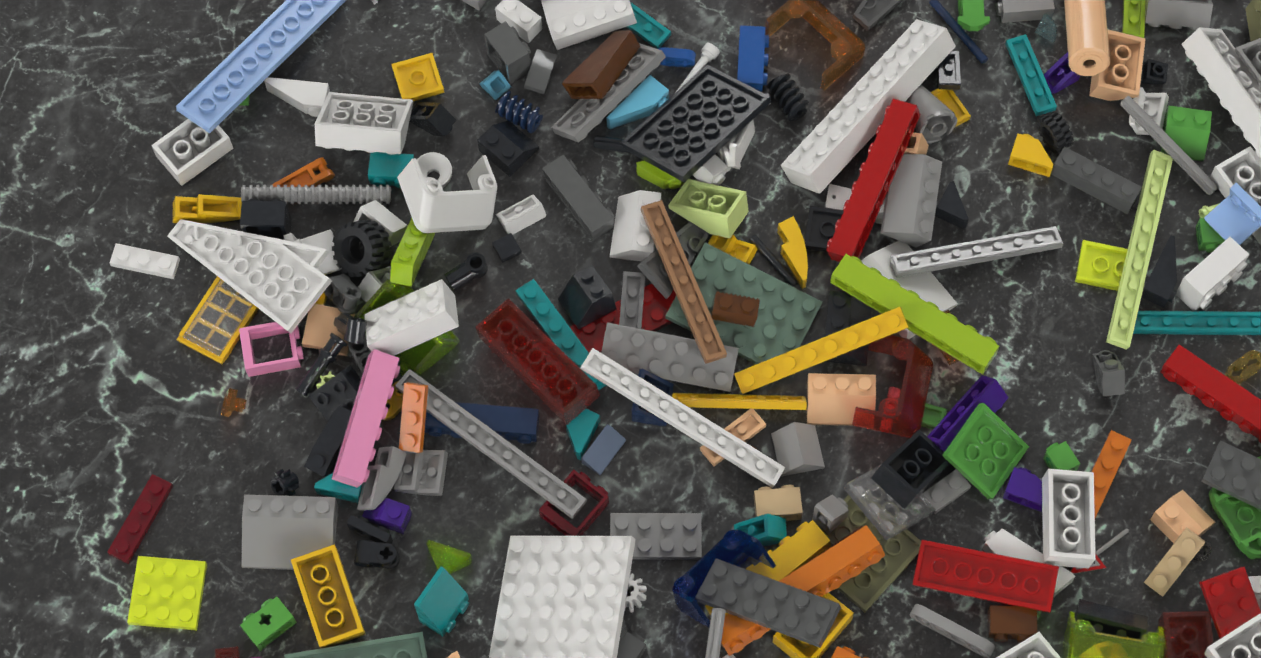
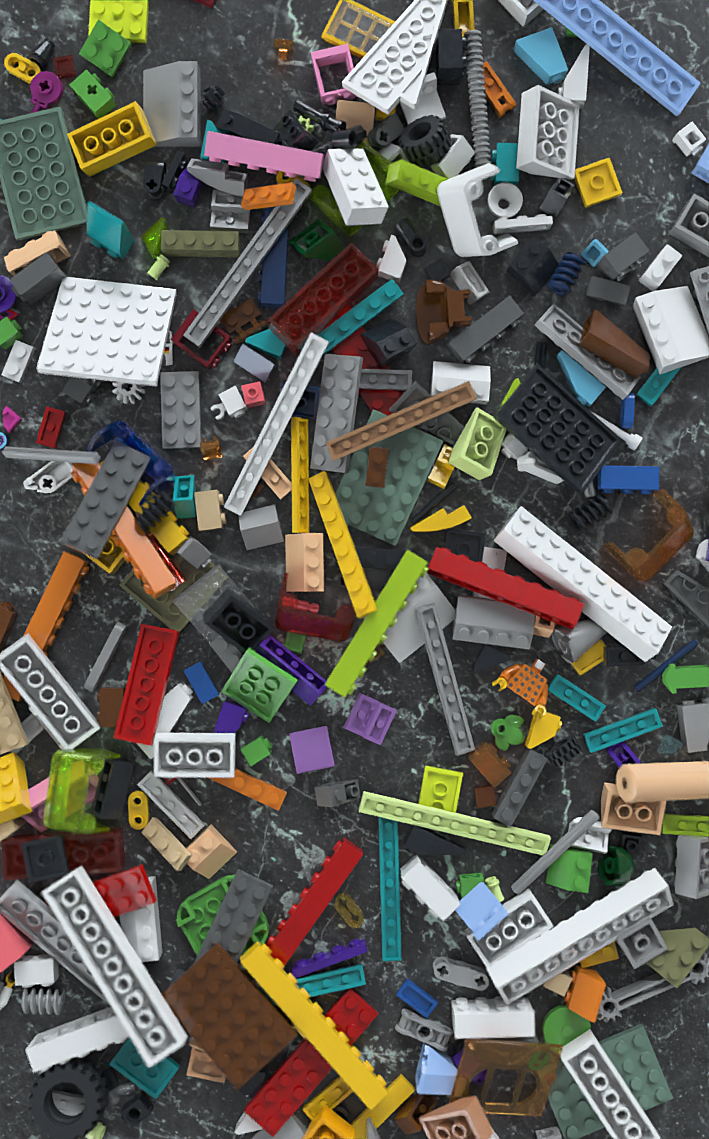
camera: 85 degrees right, 20 degrees up
(213, 606) = (105, 48): none -> bright green plate
(271, 126) = (543, 55): none -> medium azure slope
(459, 155) = (522, 224): none -> white plate
(459, 502) = (200, 243): none -> olive brick
(464, 372) = (317, 242): none -> dark green slope
(482, 554) = (158, 267): none -> yellowish green pin
(491, 291) = (393, 261): none -> white slope
(545, 456) = (242, 316): none -> reddish brown plate
(554, 244) = (439, 310): none -> reddish brown piece
(642, 449) = (253, 394): none -> coral brick
(651, 474) = (232, 403): none -> white brick
(704, 499) = (211, 449): none -> clear orange tile
(781, 551) = (155, 511): none -> black piece
(981, 523) = (201, 682): none -> blue tile
(982, 167) = (526, 684): none -> orange torso
(995, 120) = (576, 697): none -> teal plate
(1022, 337) = (370, 718): none -> medium lavender slope
(1034, 192) = (510, 733): none -> bright green plate
(1059, 400) = (312, 749): none -> medium lavender slope
(1071, 210) = (489, 764): none -> clear orange brick
(1108, 218) = (484, 796): none -> reddish brown tile
(1128, 563) = (171, 804): none -> white tile
(1136, 600) = (138, 810): none -> yellow plate
(1182, 85) = (616, 866): none -> dark green cylinder

